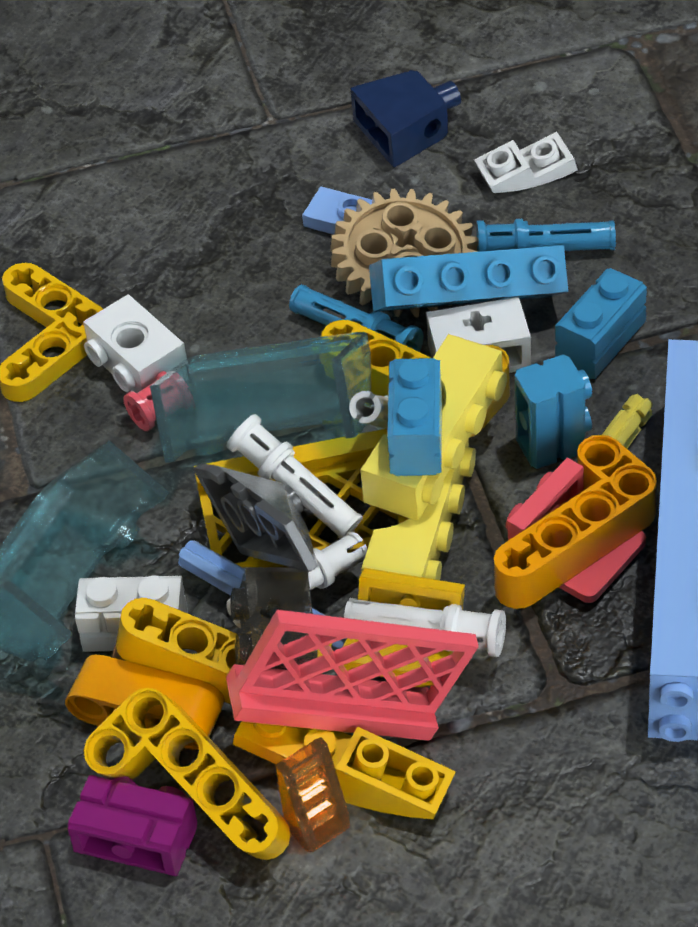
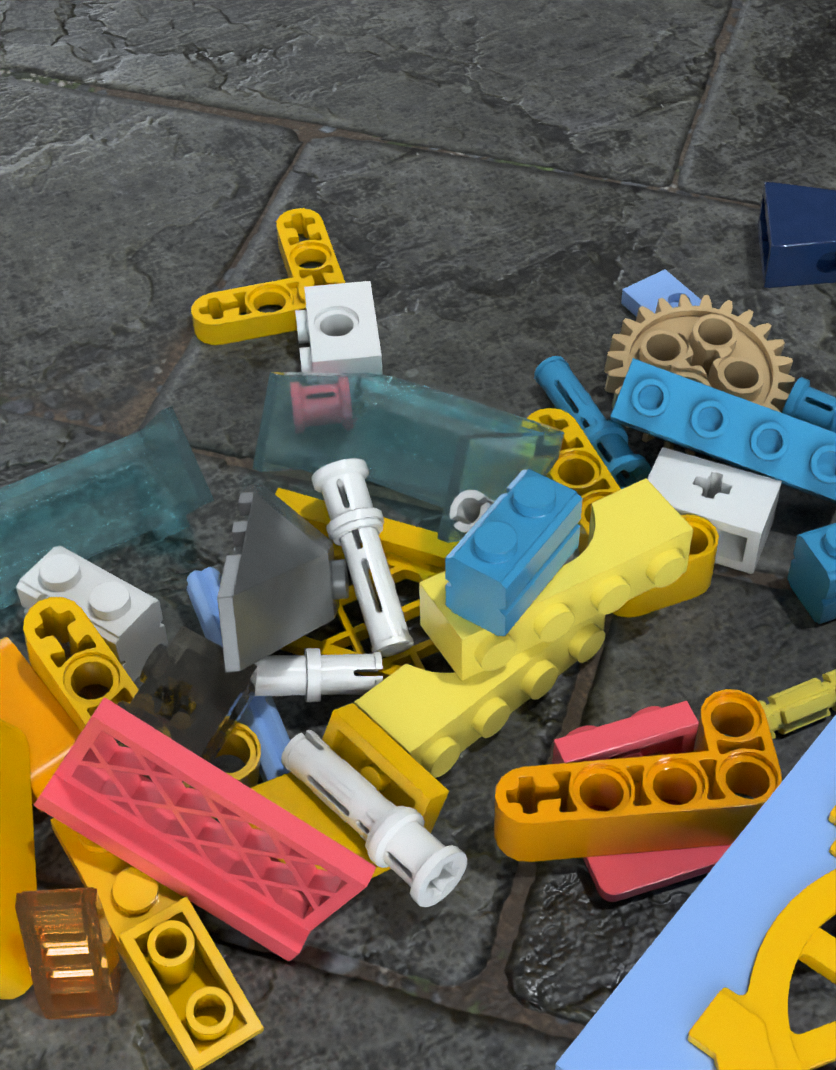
camera: 30 degrees right, 0 degrees up
(551, 410) = (722, 630): dark azure brick -> none

